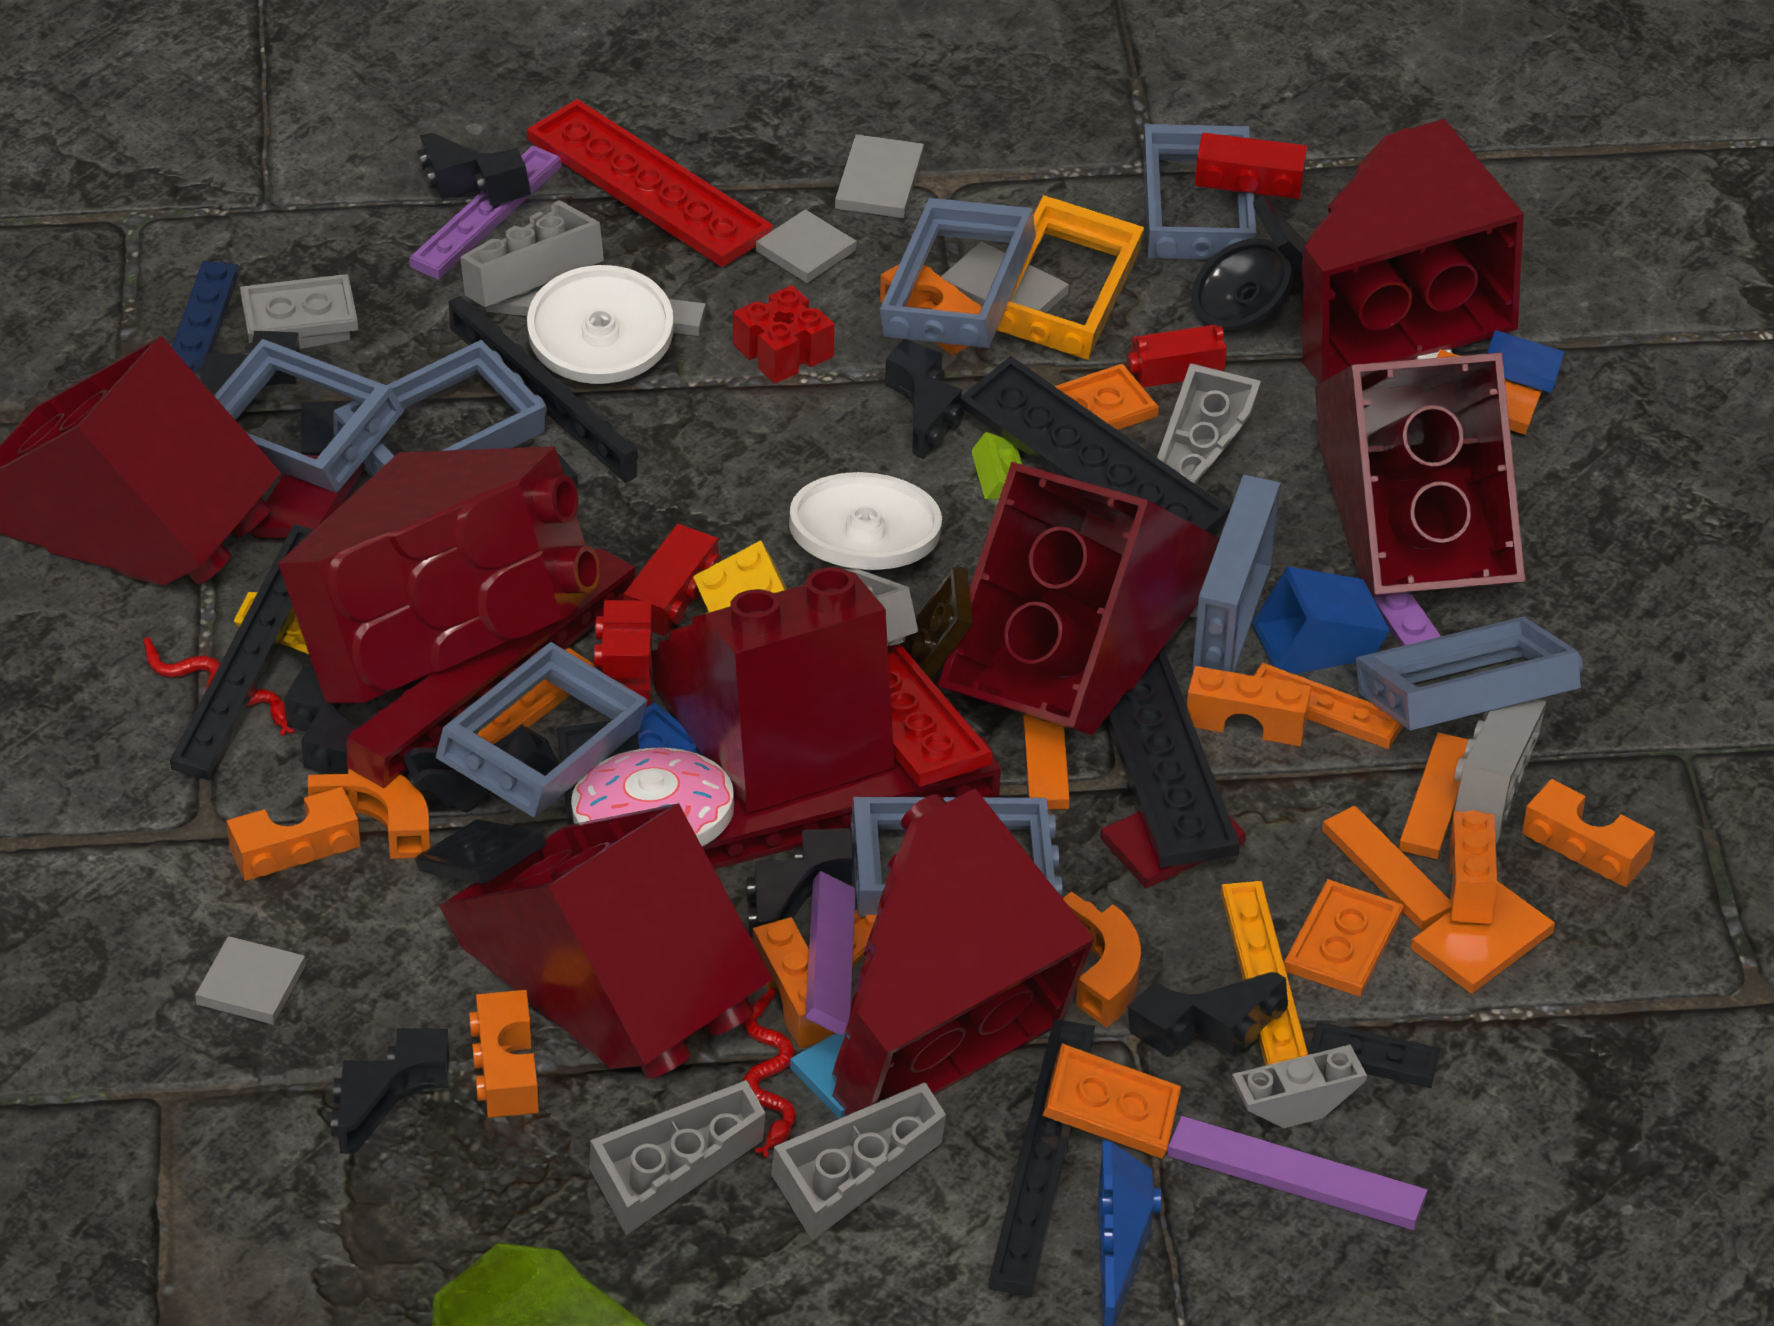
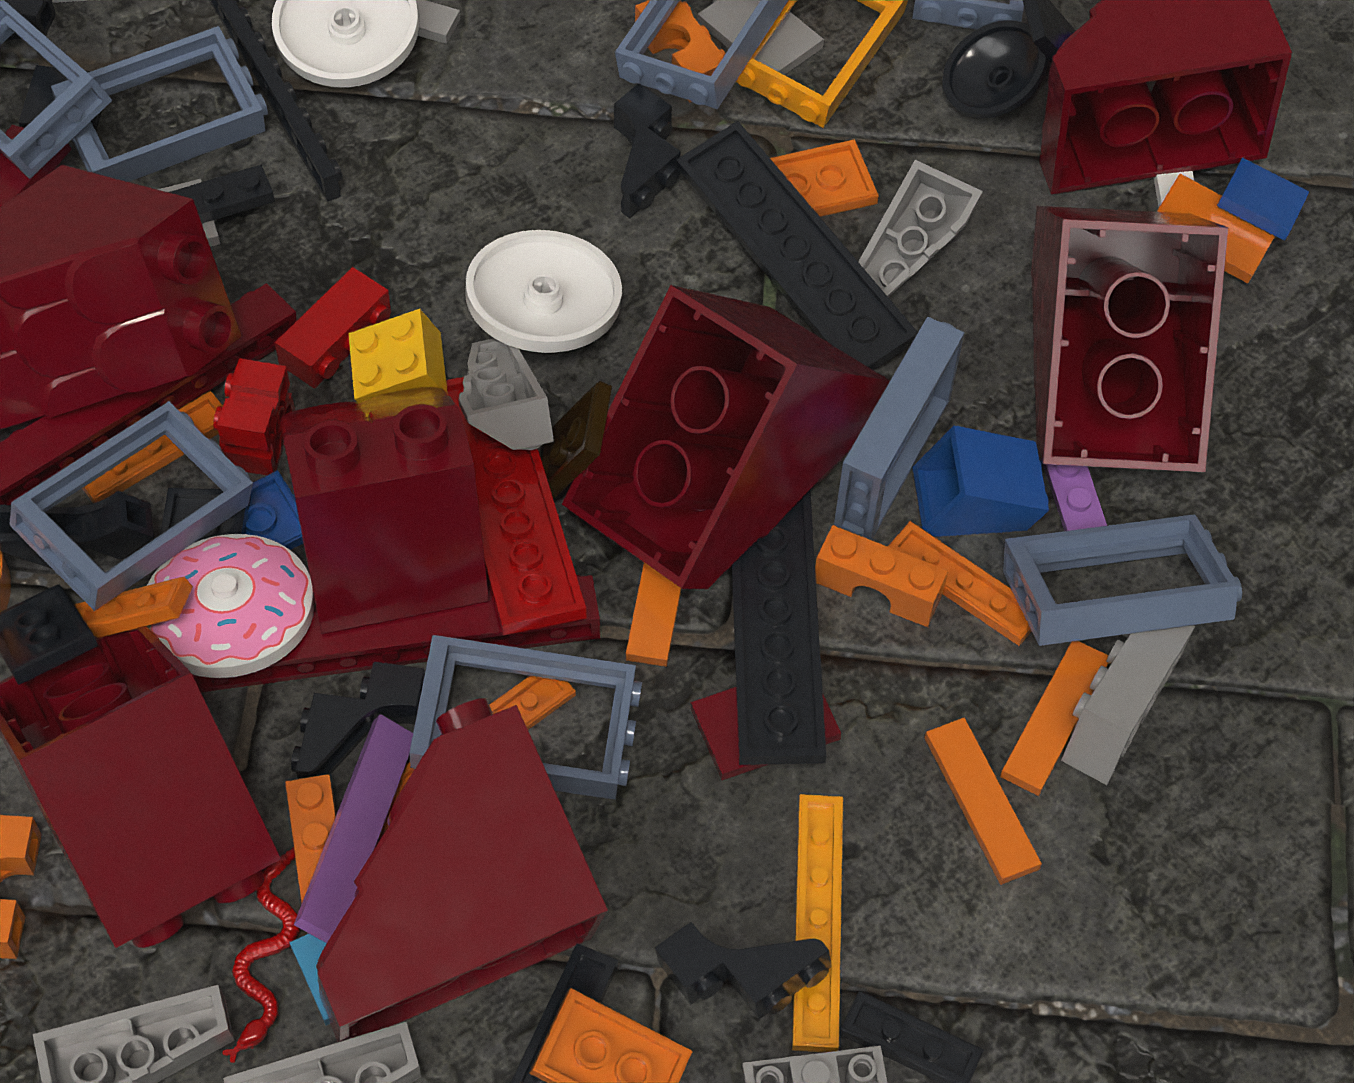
camera: 10 degrees right, 15 degrees up
(577, 807) = (137, 607): none -> orange tile
(783, 334) = (524, 57): red brick -> none
(992, 461) = (701, 243): lime slope -> none
(1114, 979) = (657, 899): orange arch -> none
(1167, 355) = (903, 138): red brick -> none
(1343, 938) = (914, 882): orange tile -> none
(1473, 867) = (1069, 827): orange arch -> none
(1480, 951) = (1063, 906): orange tile -> none
(1611, 850) = (1226, 824): orange arch -> none

